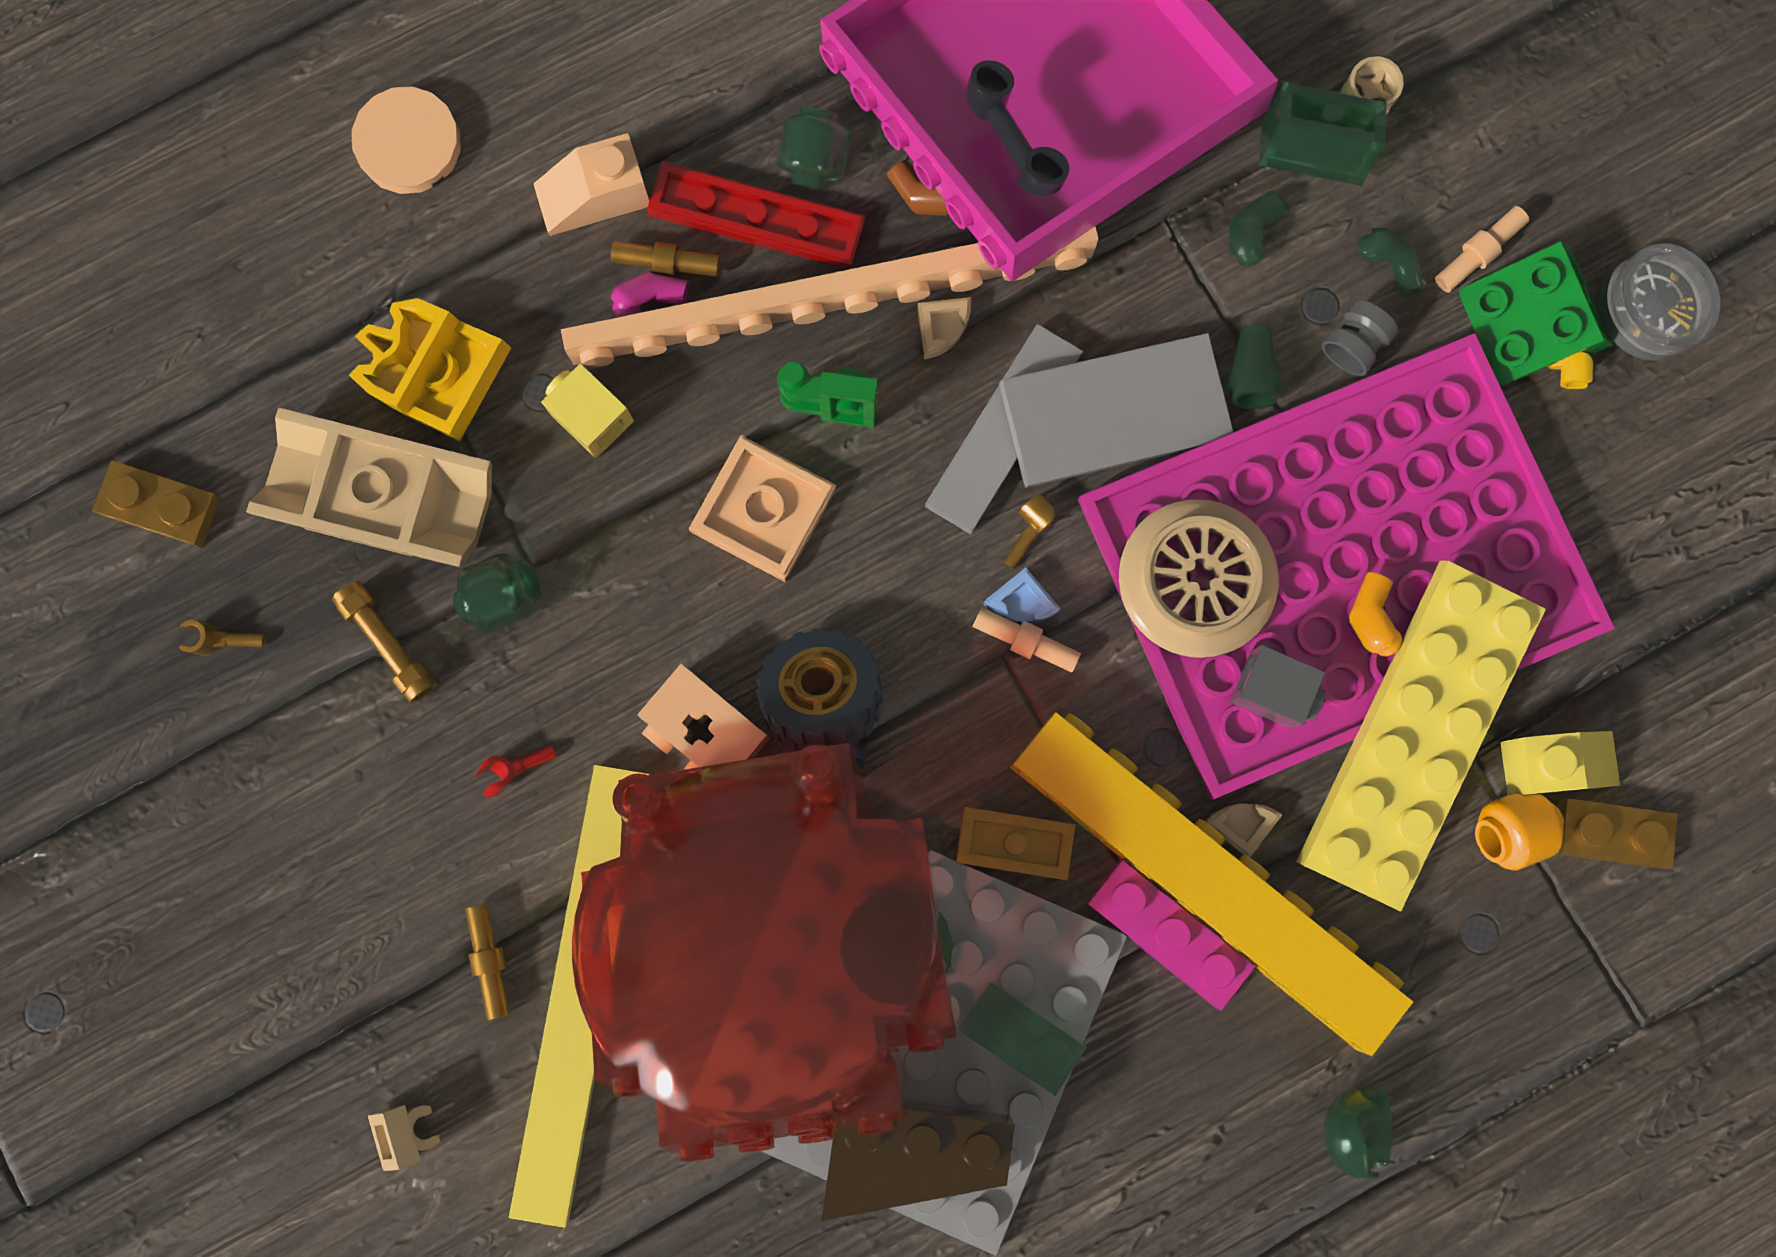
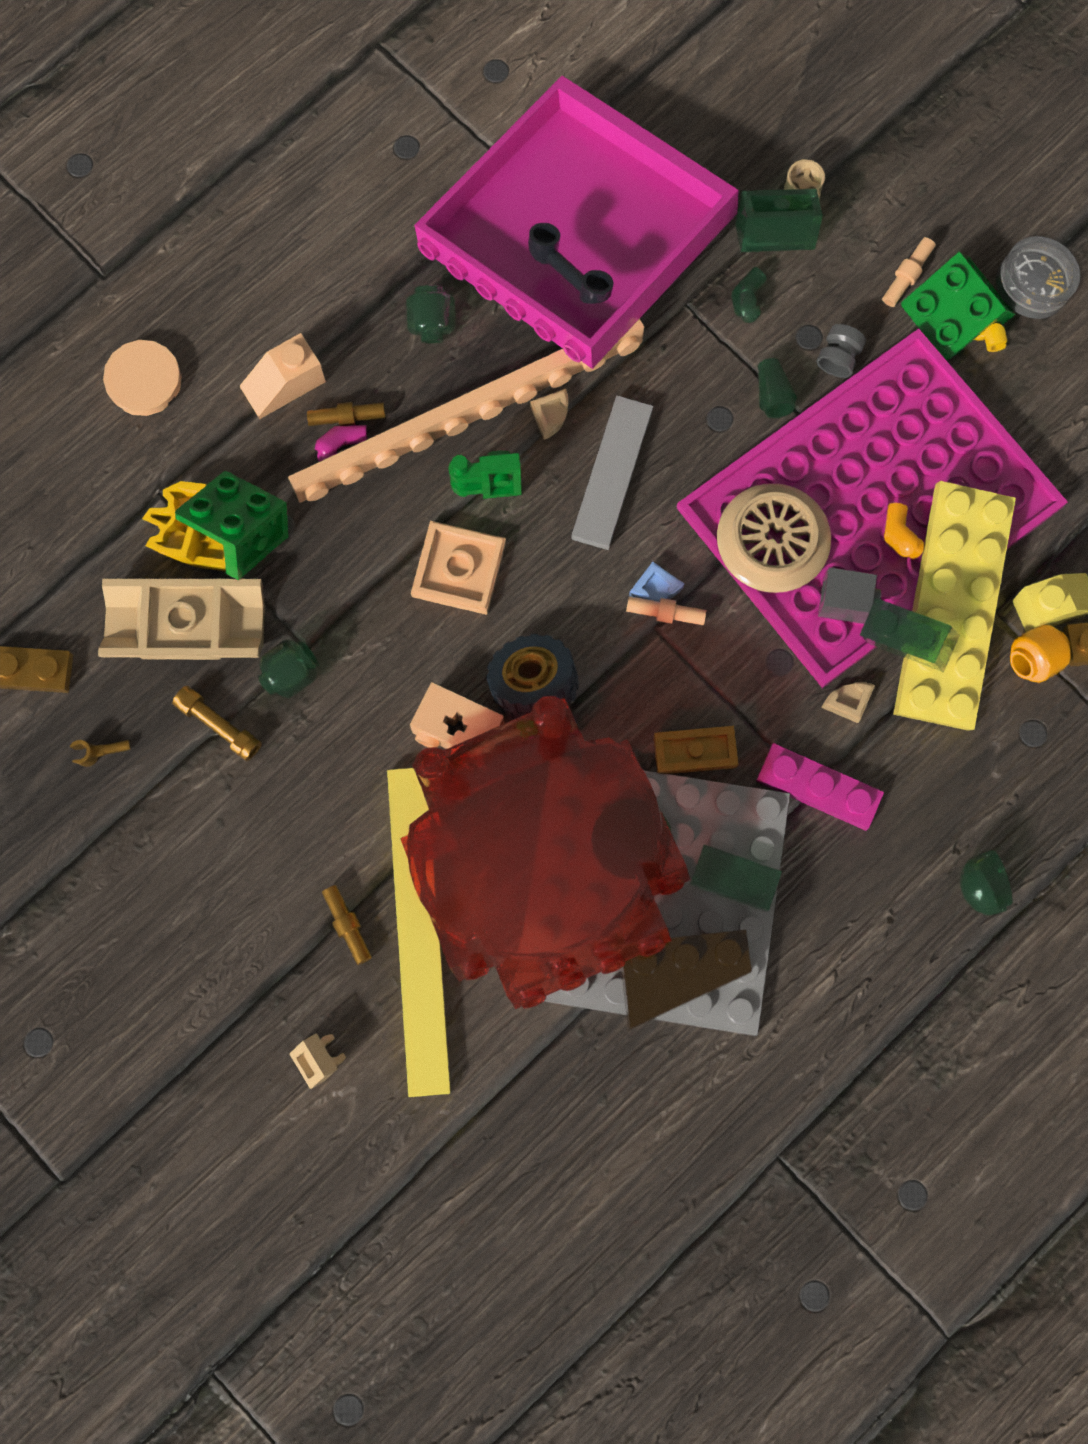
camera: 10 degrees left, 5 degrees down
(476, 372) = (240, 518): none -> green bracket
(508, 769) = (325, 789): red hand -> none
(586, 409) = (318, 529): light yellow brick -> none
(756, 215) = (401, 370): red tile -> none
(915, 194) = (508, 327): dark orange arm -> none
(1039, 516) = (652, 524): pearl gold hand -> none
(1115, 410) = (686, 439): light grey tile -> none
(1212, 884) = (838, 742): yellow brick -> none
(1347, 768) = (909, 635): none -> clear green brick
(1399, 254) = (852, 288): clear green arm -> none

